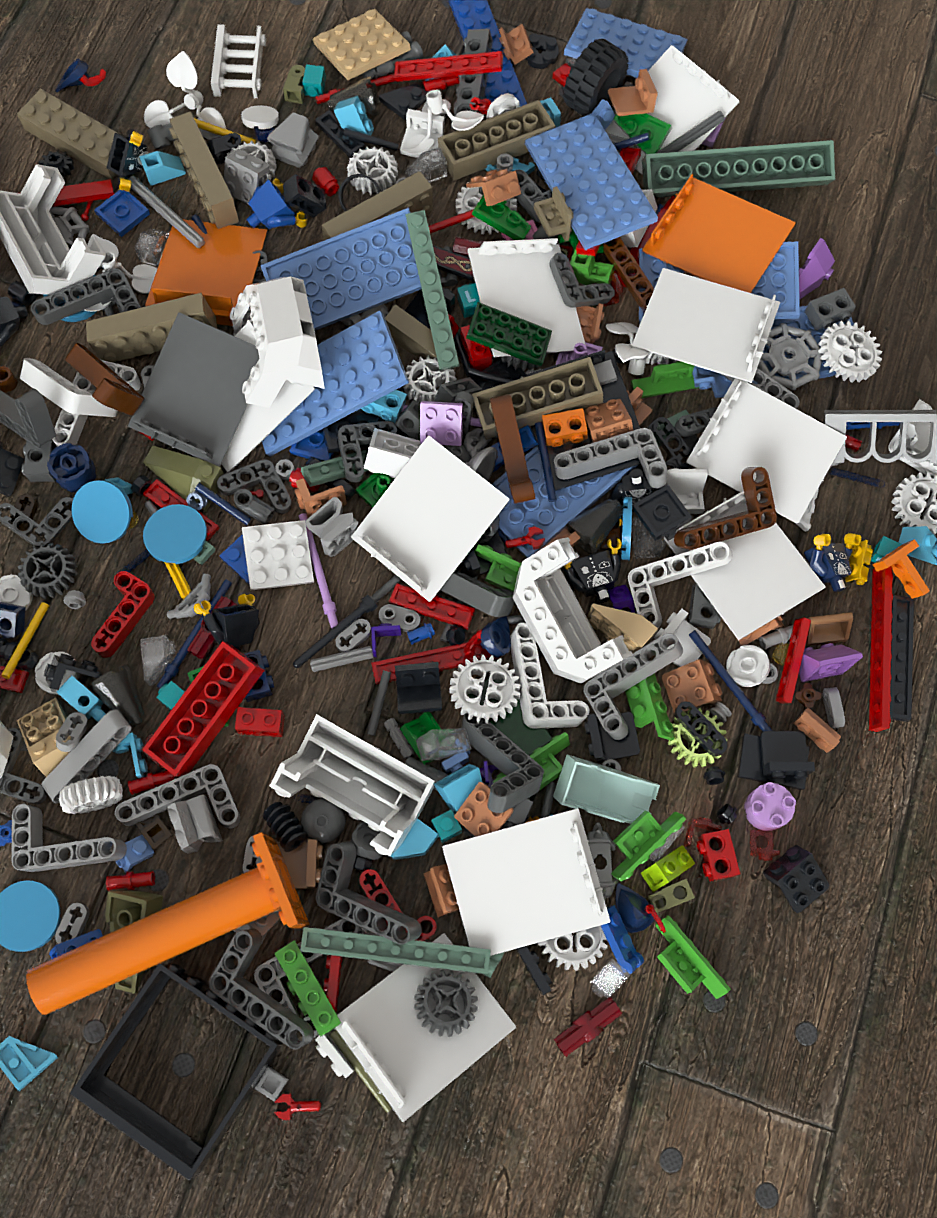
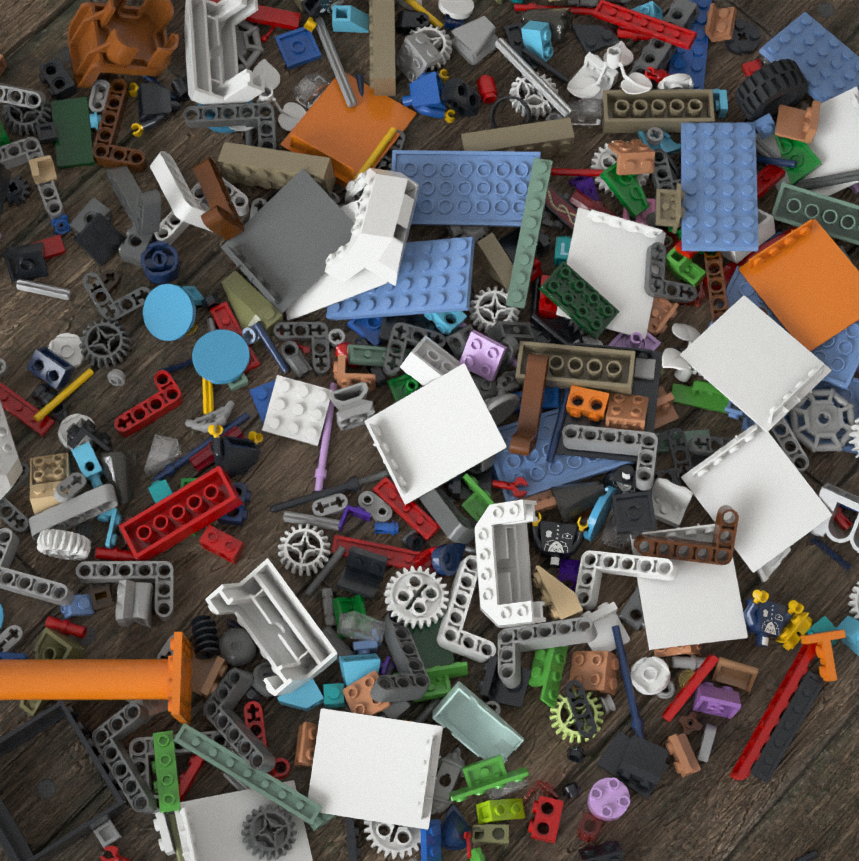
camera: 25 degrees right, 0 degrees up
(246, 272) = (378, 150): none -> yellow bar
(355, 689) = (297, 547): none -> white gear
(365, 151) = (533, 77): none -> light grey axle
(460, 230) = (586, 186): none -> dark purple bracket

